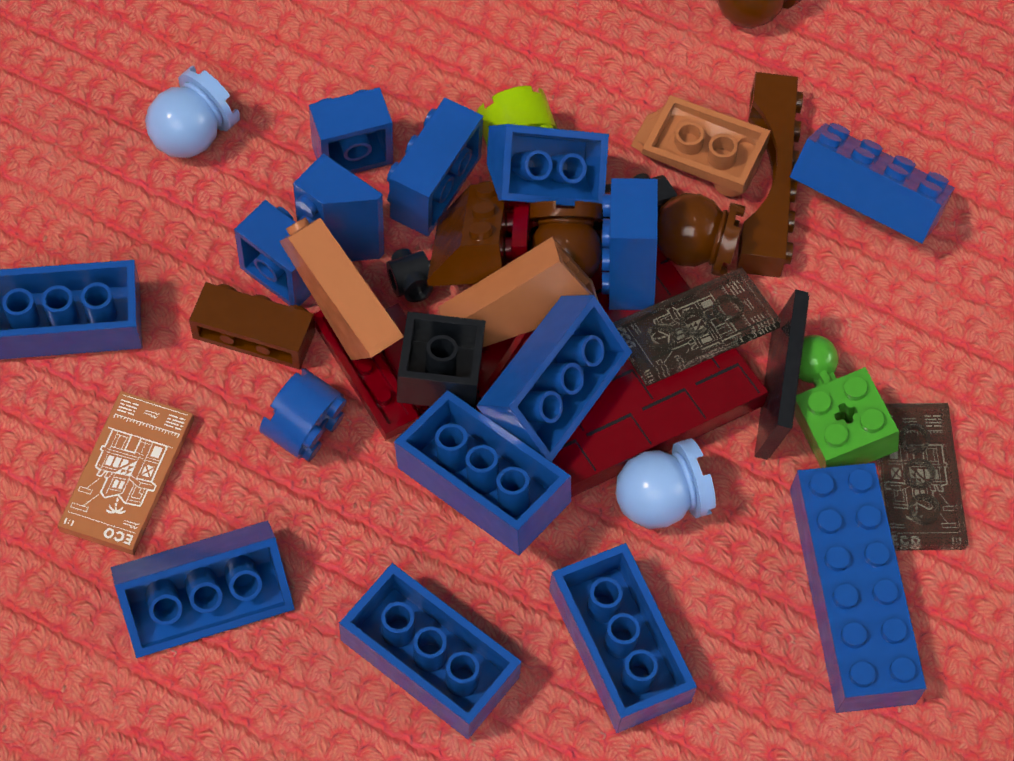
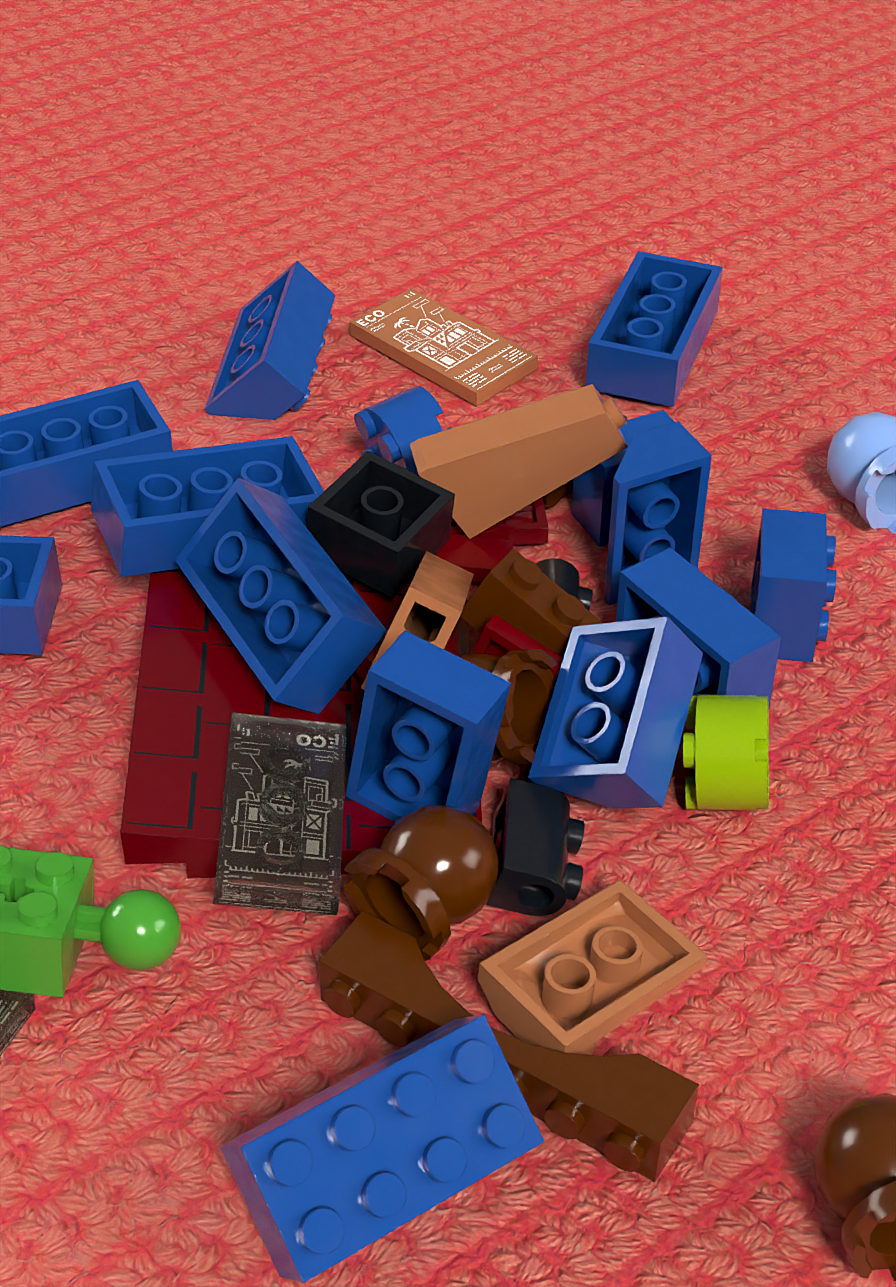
camera: 120 degrees right, 20 degrees down
(662, 487) = (78, 695): light blue tile -> none
(782, 375) = (135, 860): black tile -> none

